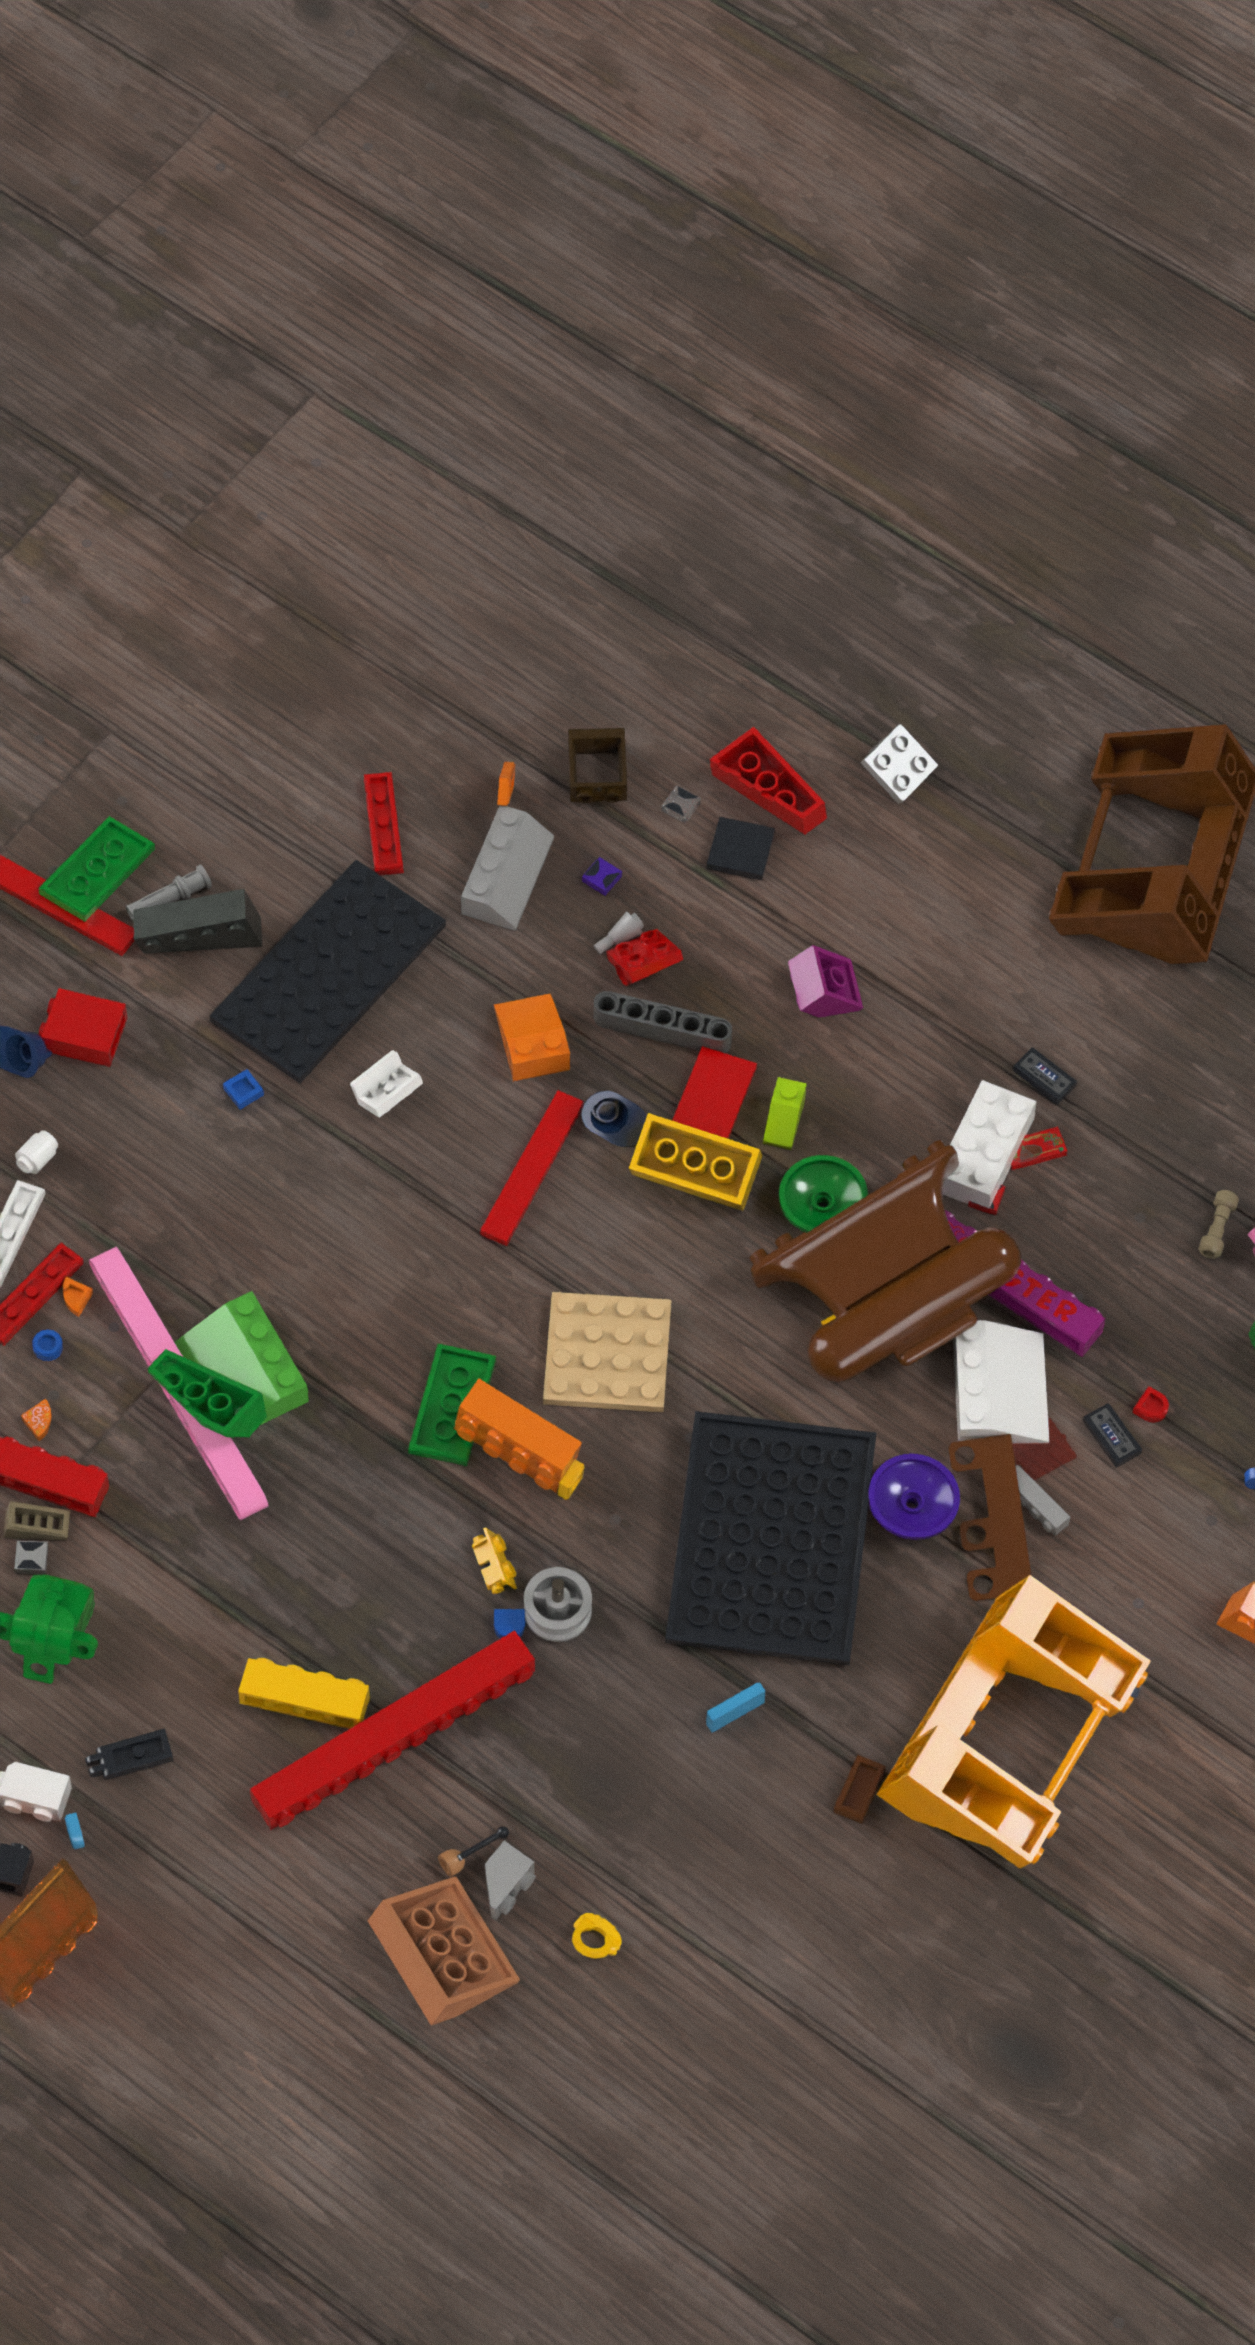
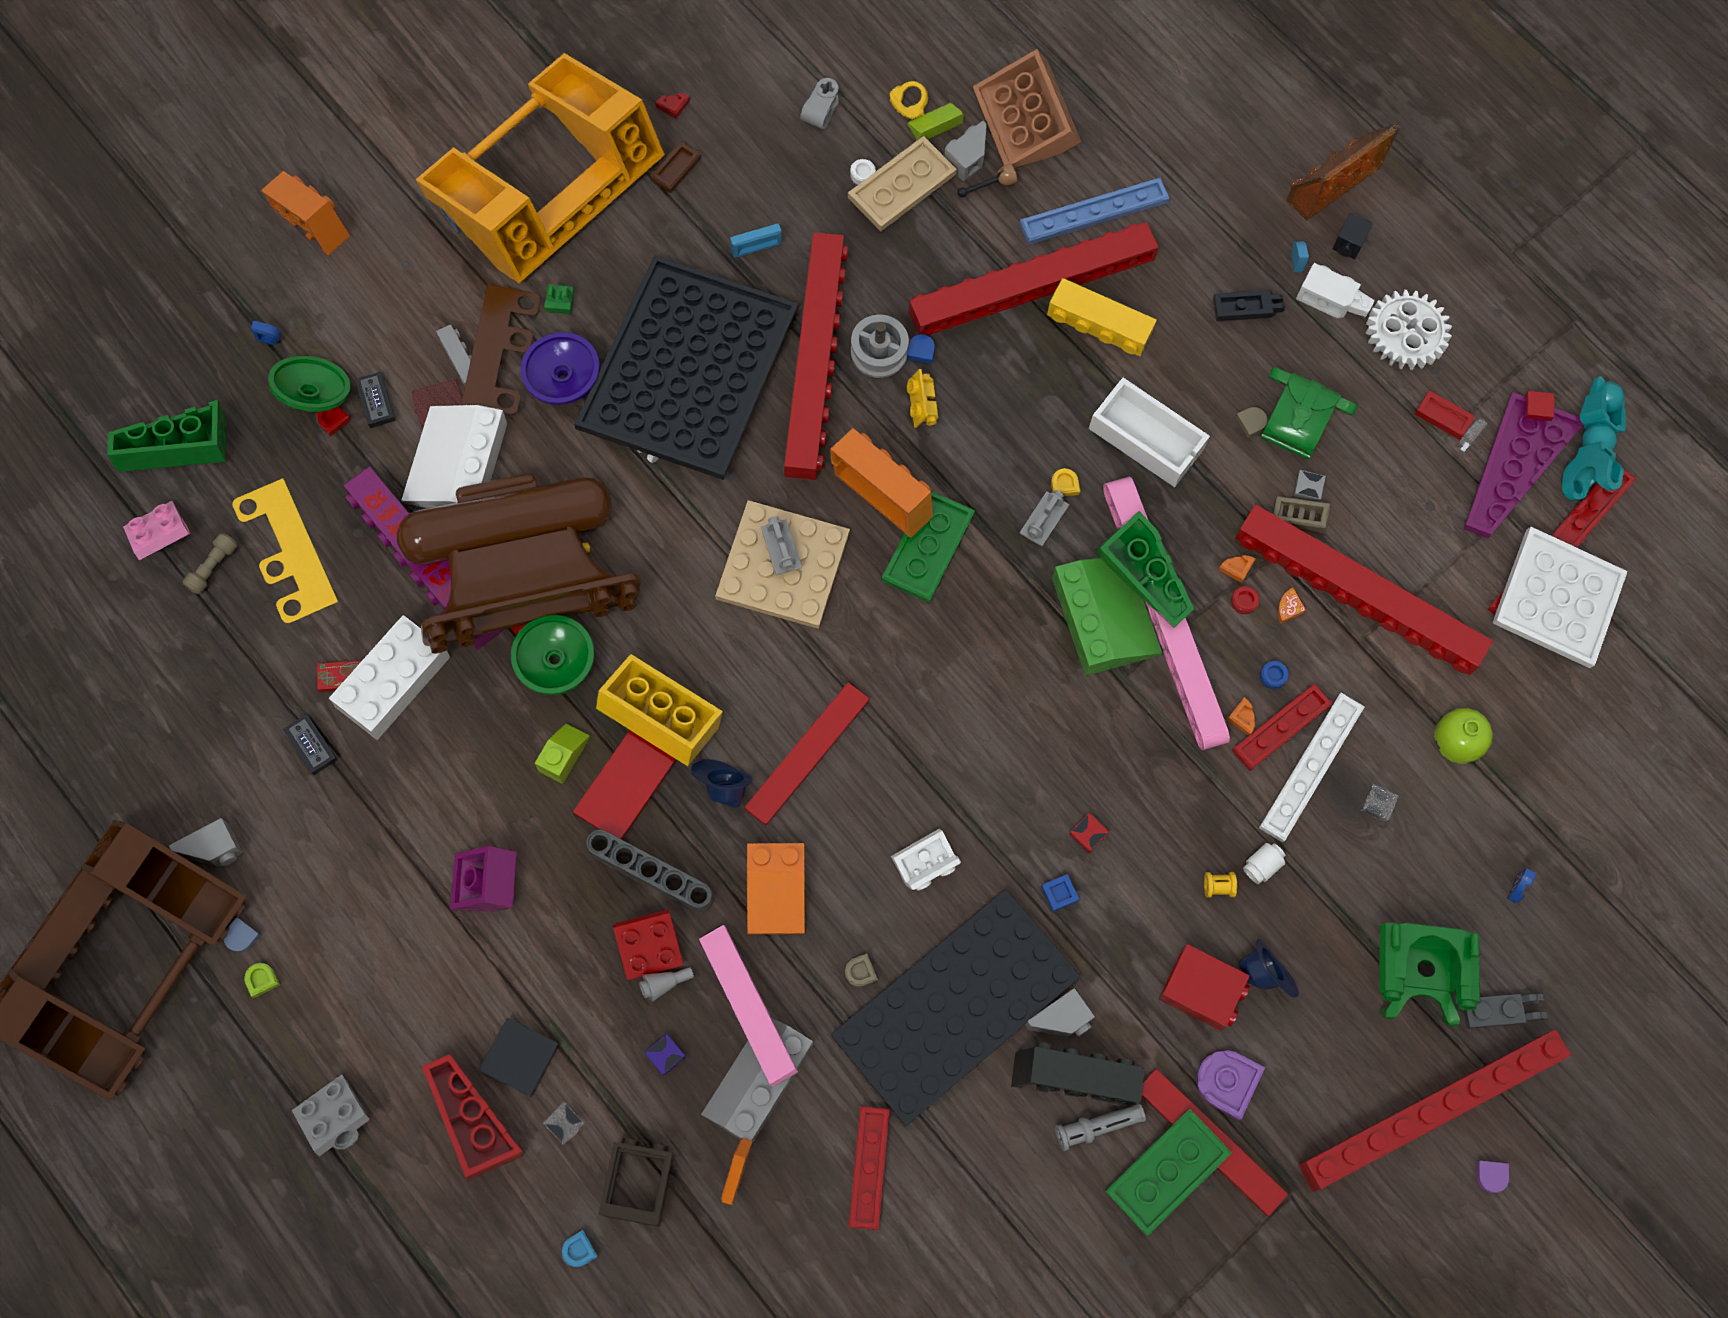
camera: 170 degrees left, 10 degrees up
(47, 958) = (1228, 1081): none -> medium lavender tile
(80, 1123) = (1220, 884): none -> yellow bush
(89, 1417) = (1245, 600): none -> red tile
(102, 1451) = (1237, 567): none -> orange tile
(106, 1619) = (1252, 421): none -> dark tan tile
(221, 974) = (1063, 1017): none -> light grey slope
(223, 1150) = (1089, 833): none -> red tile
(226, 1565) = (1148, 432): none -> white piece
(312, 1504) = (1065, 482): none -> yellow tile
(329, 1457) = (1045, 517): none -> light grey hinge
(335, 1843) = (1094, 211): none -> medium blue tile
(429, 981) = (860, 972): none -> dark tan tile
(532, 917) = (748, 1006): none -> bright pink tile
(555, 1917) = (936, 121): none -> lime slope
(578, 1821) = (902, 183): none -> tan plate
(611, 1352) = (780, 546): none -> light grey hinge
(630, 1832) = (861, 170): none -> white tile
(631, 1586) = (814, 357): none -> red brick
(636, 711) = (578, 1250): none -> dark azure tile
(702, 1900) = (821, 103): none -> light grey piece
(887, 1872) = (673, 104): none -> red tile
(945, 1594) = (559, 299): none -> green tile
(1010, 865) = (260, 979): none -> lime tile
(1042, 895) = (240, 936): none -> sand blue tile
(1105, 961) = (210, 845): none -> light grey slope
(1136, 1265) = (297, 550): none -> yellow piece
(1180, 1443) = (309, 383): none -> green dish

